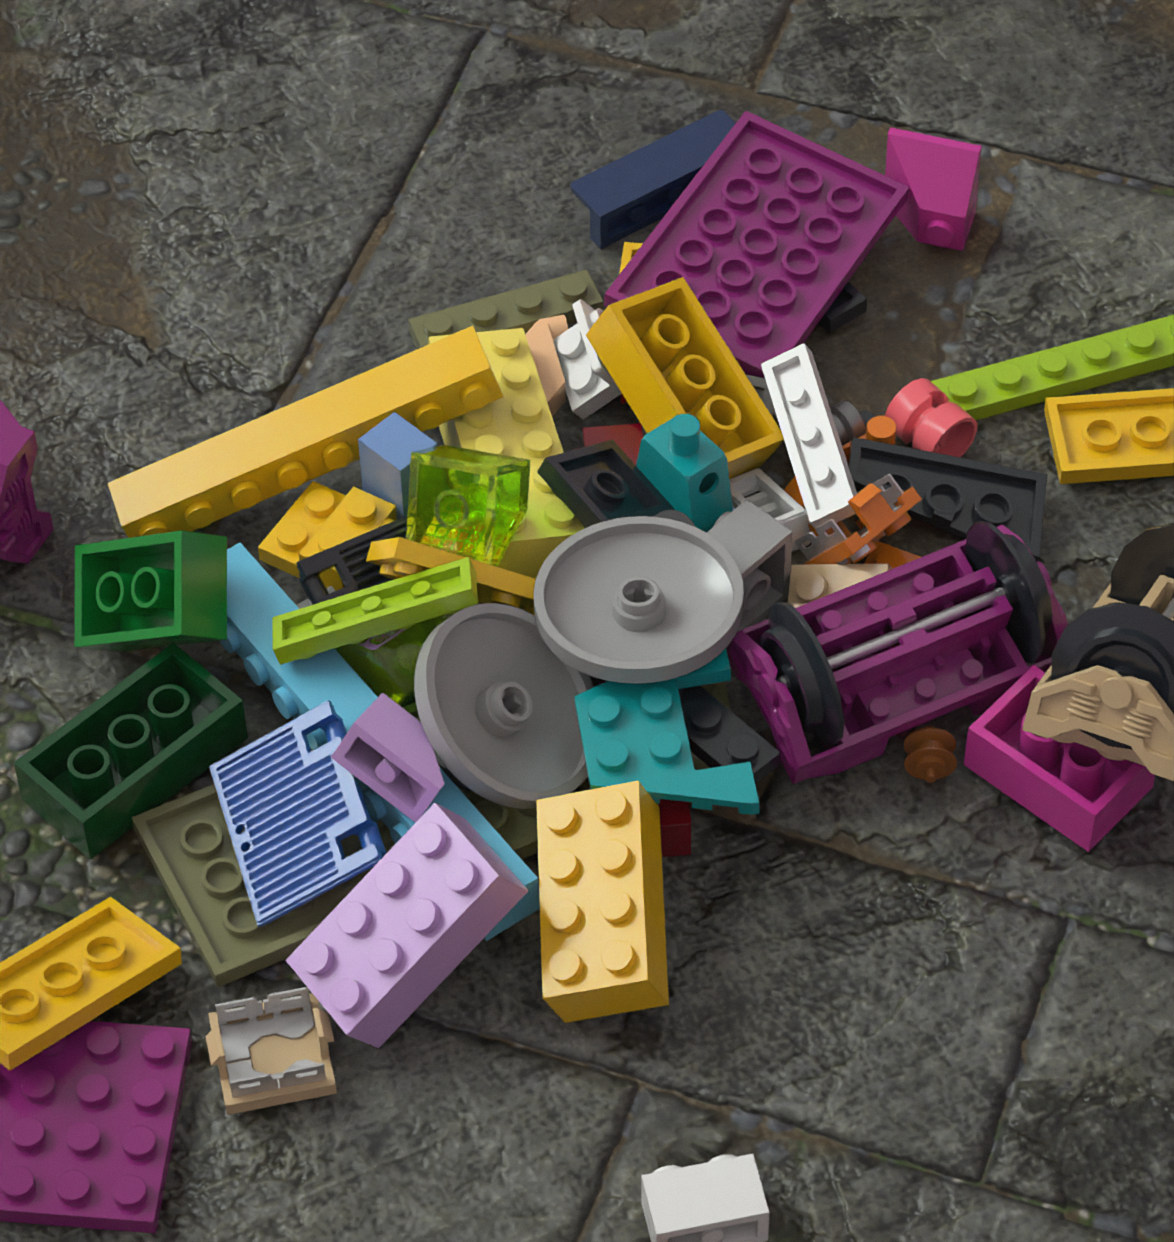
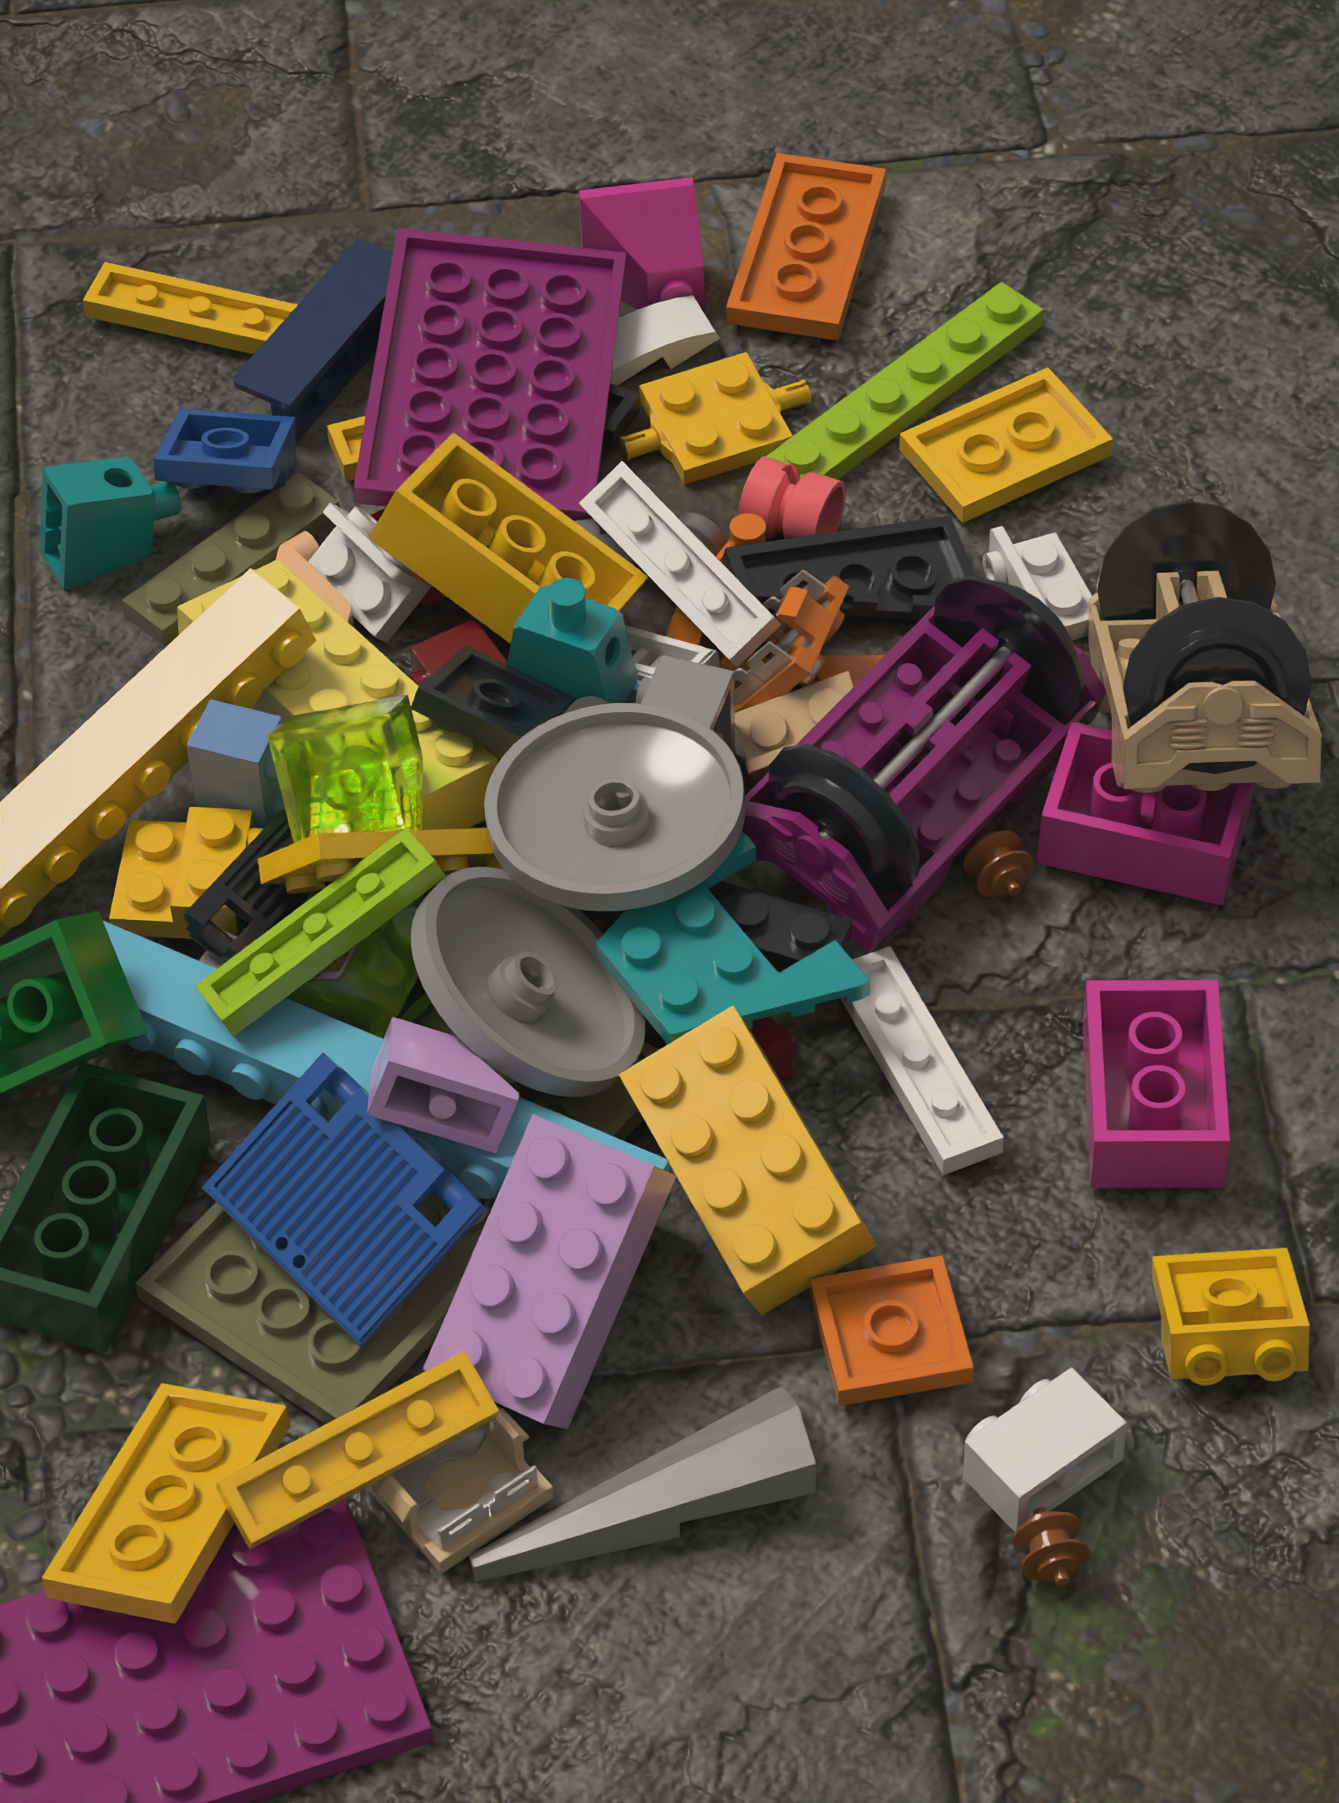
camera: 25 degrees left, 0 degrees up
(200, 998) = (357, 1450): none -> yellow plate
(422, 252) = (99, 517): none -> teal torso
(465, 1123) = (728, 1466): none -> light grey wedge
(538, 235) = (227, 450): none -> blue plate
(572, 117) = (183, 308): none -> yellow plate
(646, 1072) = (891, 1330): none -> orange plate
(783, 879) = (922, 1067): none -> white plate
(903, 1165) = (1231, 1315): none -> yellow plate
(916, 257) = (665, 330): none -> white slope
(916, 336) = (714, 418): none -> yellow plate
(945, 966) = (1155, 1084): none -> dark pink brick
(1061, 230) = (806, 246): none -> orange plate
(1088, 553) = (1043, 570): none -> white bracket

